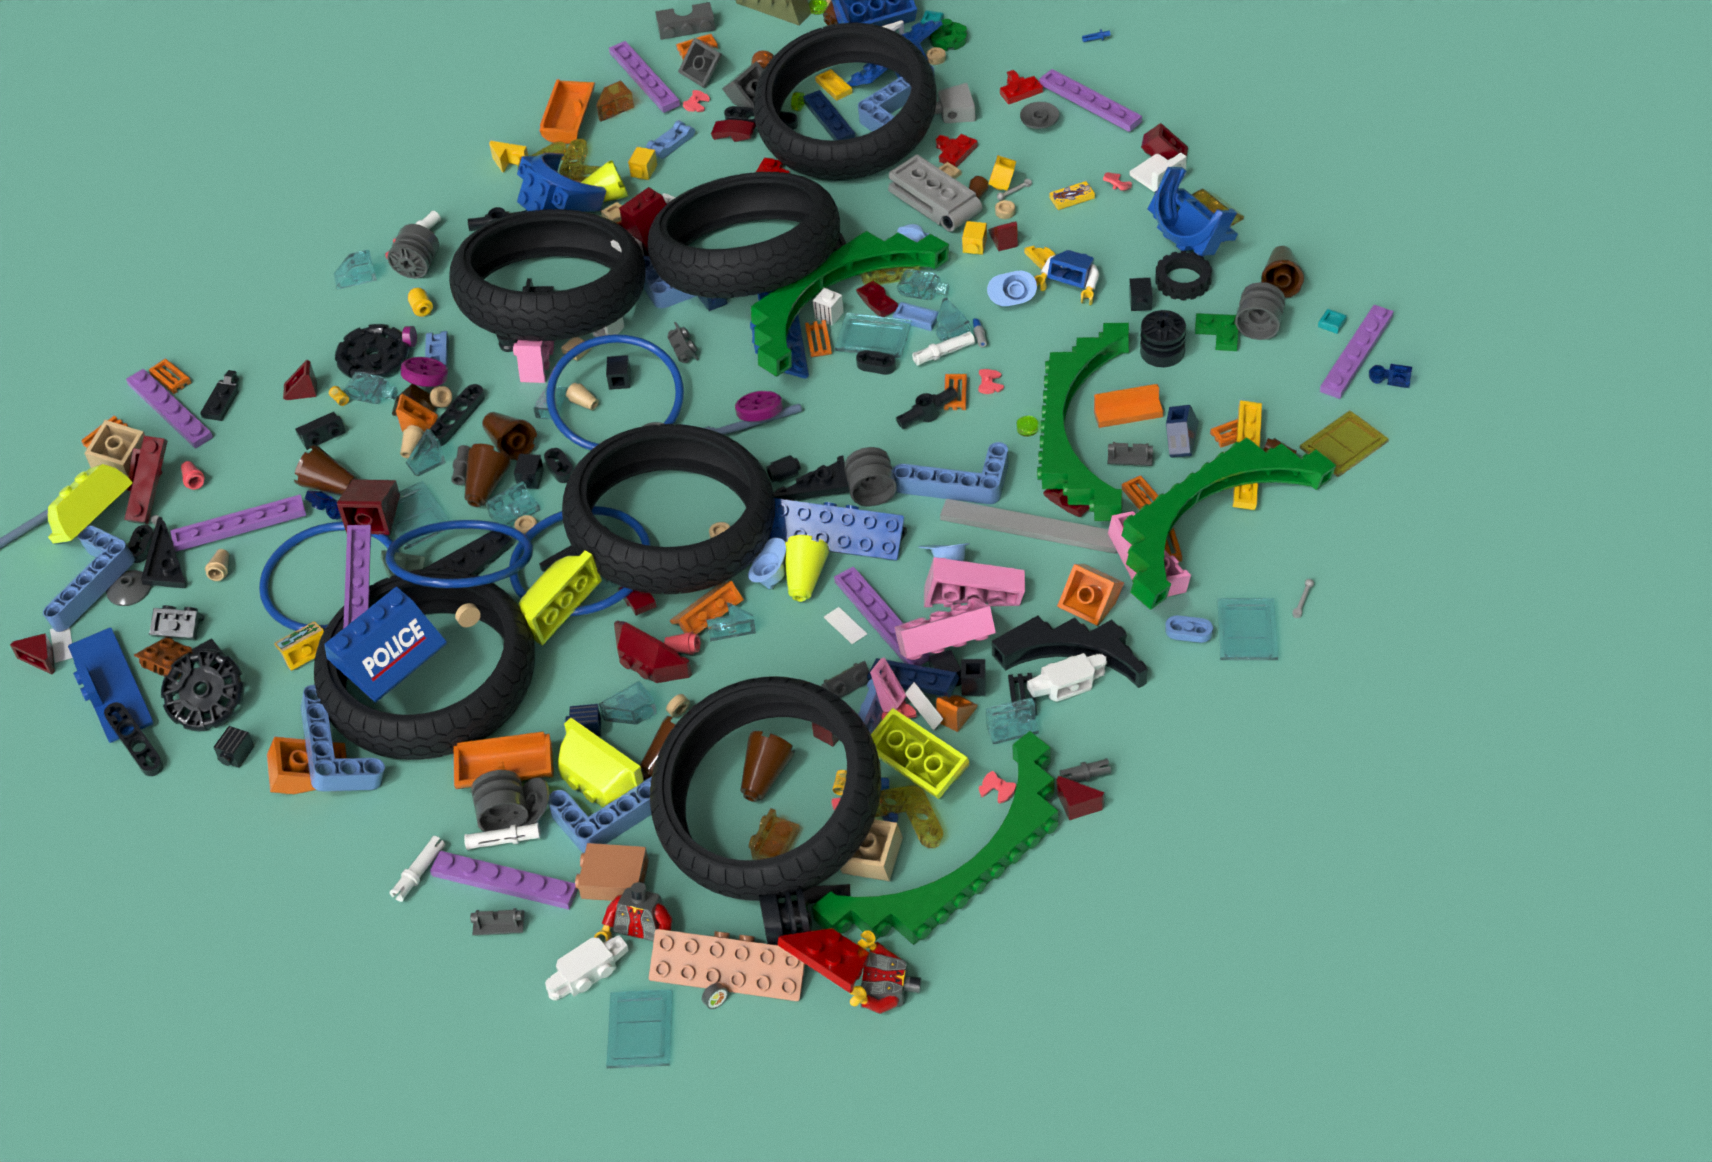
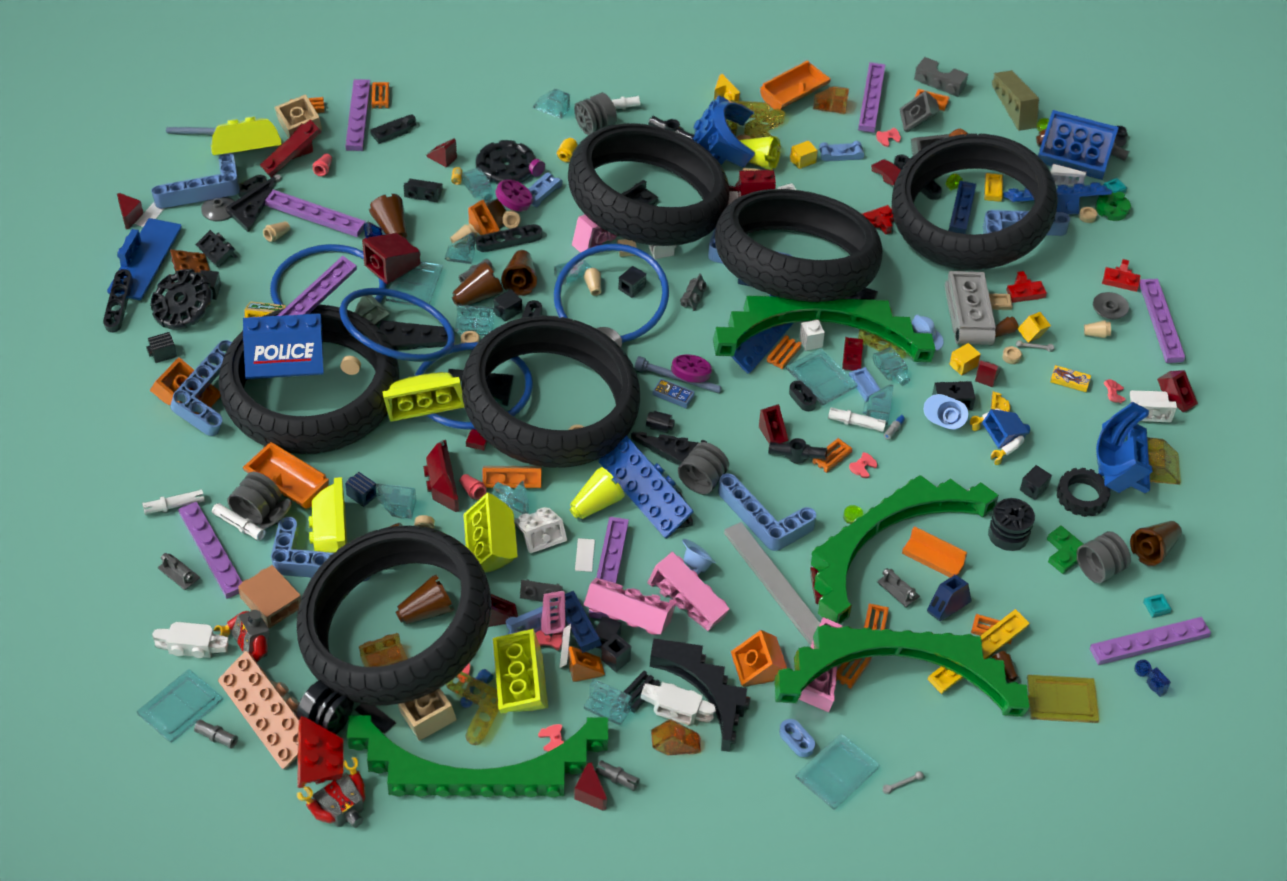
camera: 35 degrees right, 0 degrees up
(705, 1021) = (216, 733): none -> dark grey pin
(714, 995) = (238, 722): tile -> none
(743, 657) = (491, 532): none -> neon yellow windscreen
(764, 438) = (673, 393): none -> tile
(769, 564) = (576, 476): light blue piece -> none
(788, 628) = (541, 529): none -> white bracket
(882, 403) = (772, 424): none -> dark red slope
(956, 104) = (1058, 257): light grey torso -> none
(1000, 264) = (960, 391): none -> black brick
(1051, 140) = (1098, 329): none -> tan cone
(1094, 36) = (1225, 279): blue piece -> none
(1098, 705) = (675, 739): none -> clear orange slope

